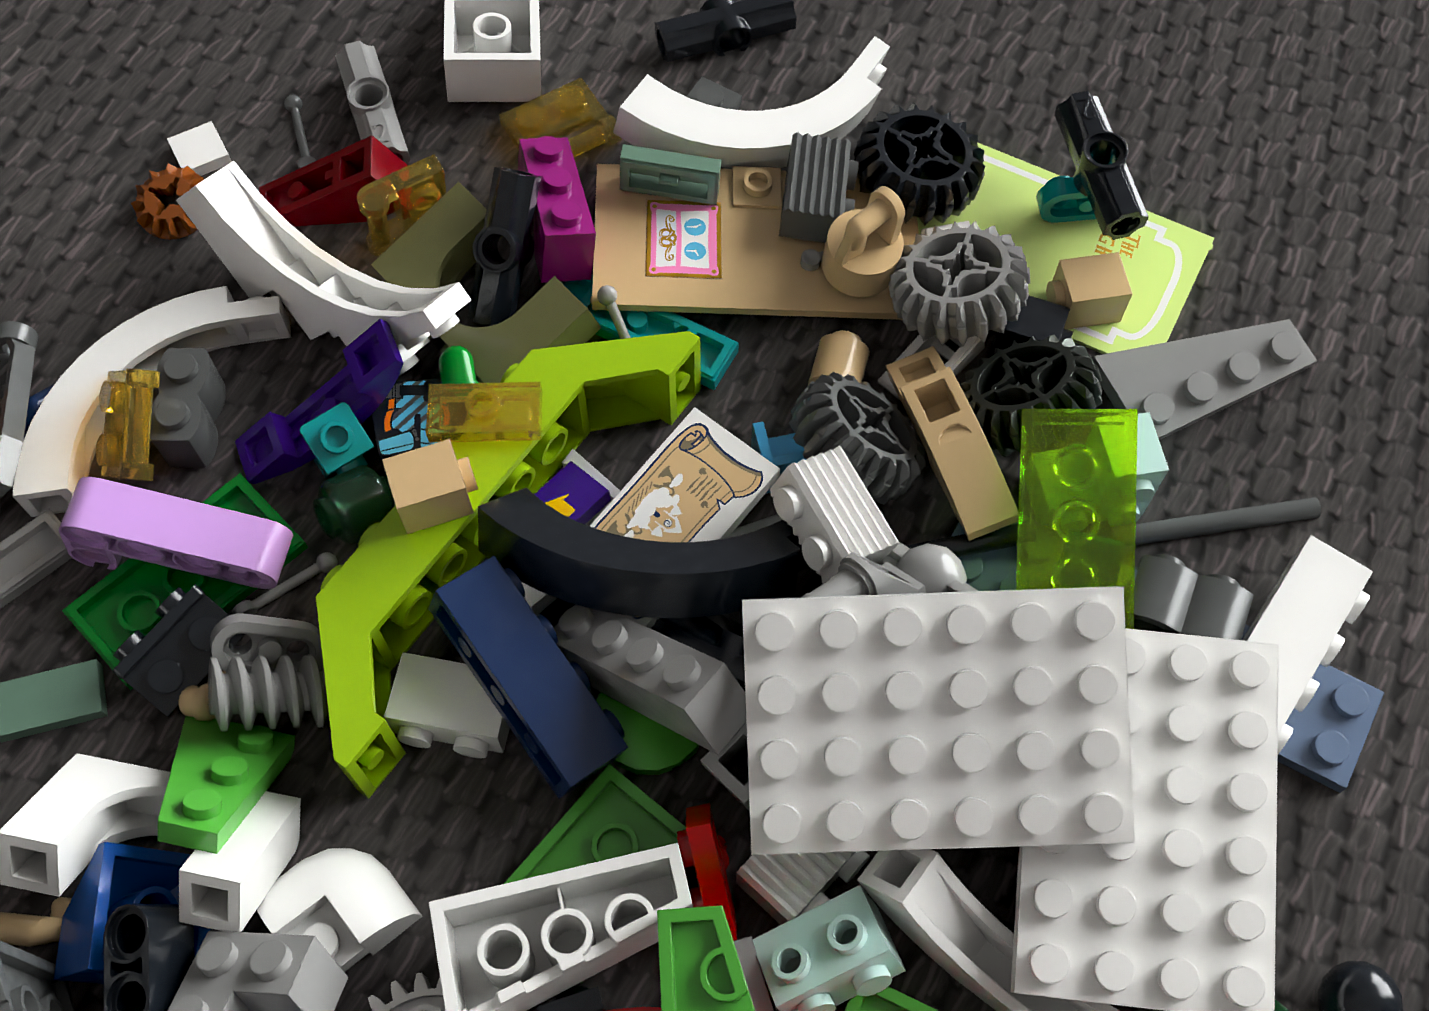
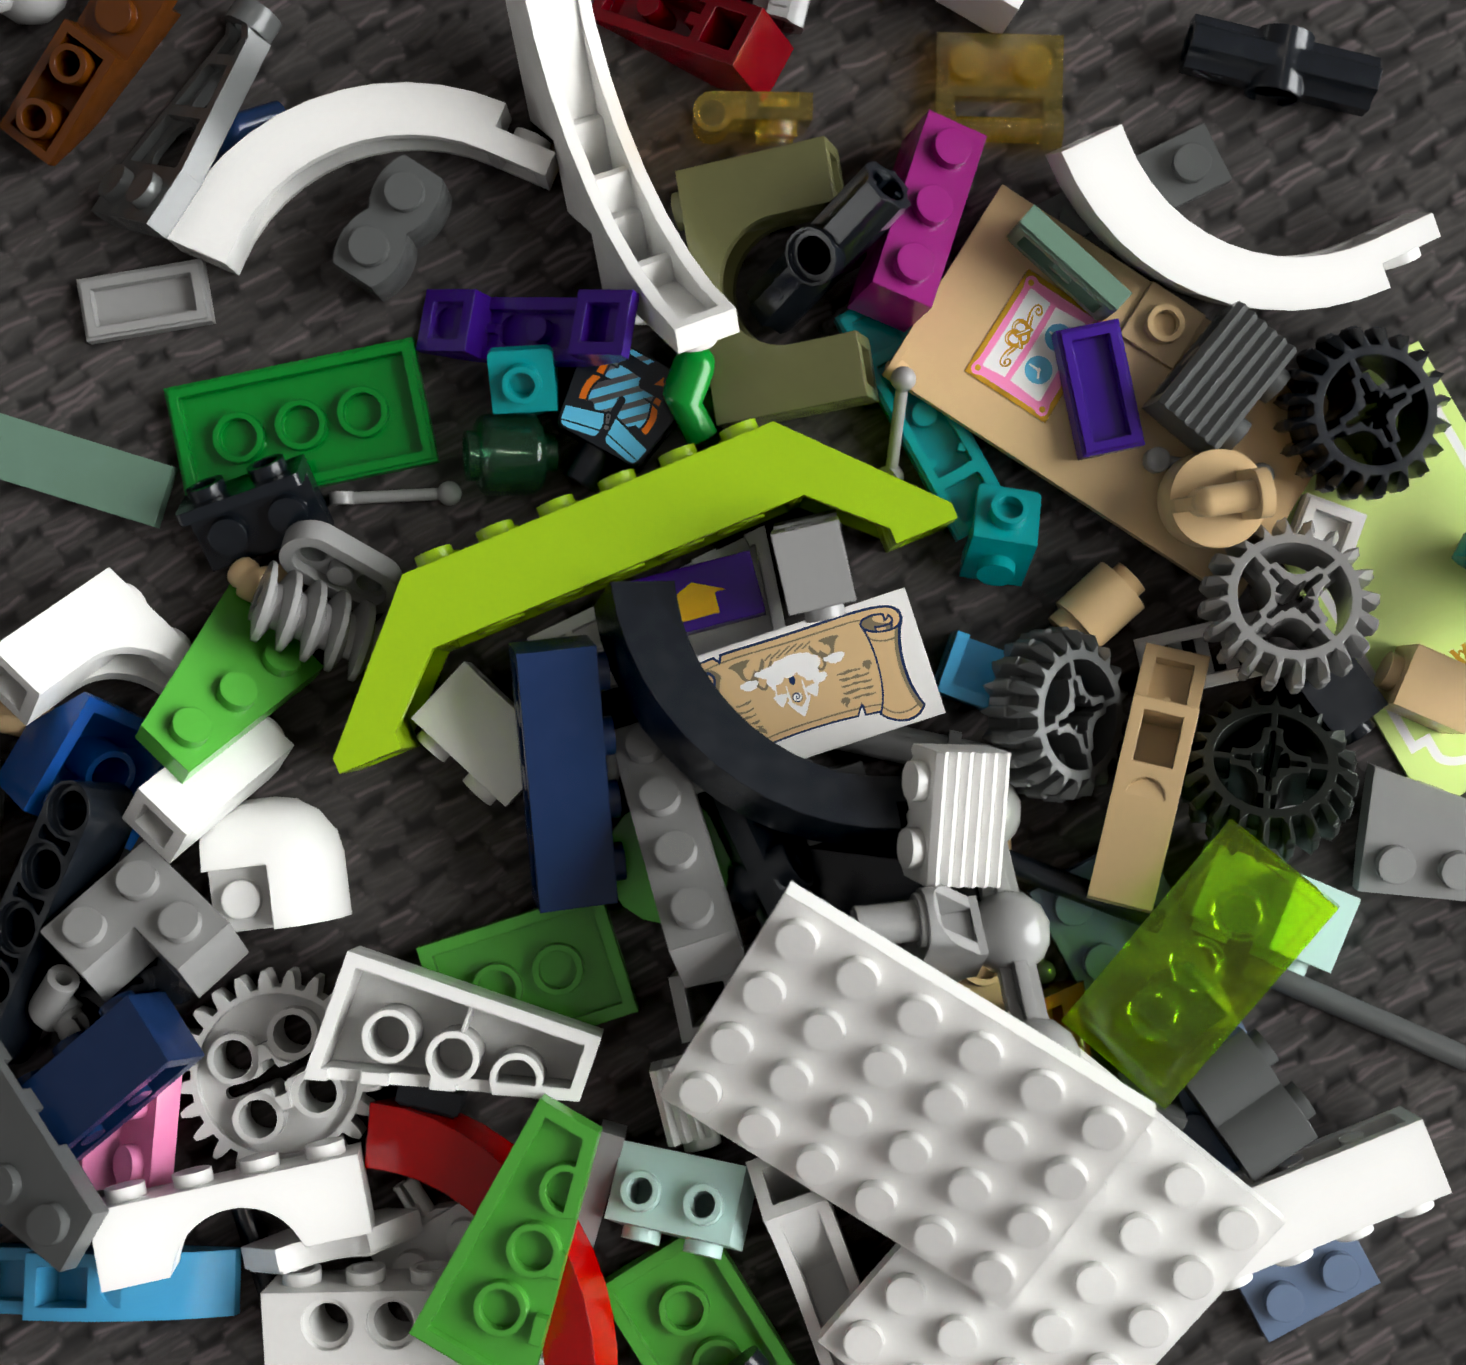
camera: 30 degrees right, 25 degrees up
(127, 407) = (312, 235): clear yellow plate -> none
(174, 532) = (307, 391): lavender beam -> none
(430, 485) = (573, 534): tan brick -> none
(484, 412) = (678, 473): clear yellow plate -> none
(620, 421) = (813, 566): none -> light grey arch
(707, 852) = (628, 1041): red plate -> none
(742, 238) = (1098, 389): none -> dark purple tile
(742, 362) = (1001, 535): none -> teal bracket

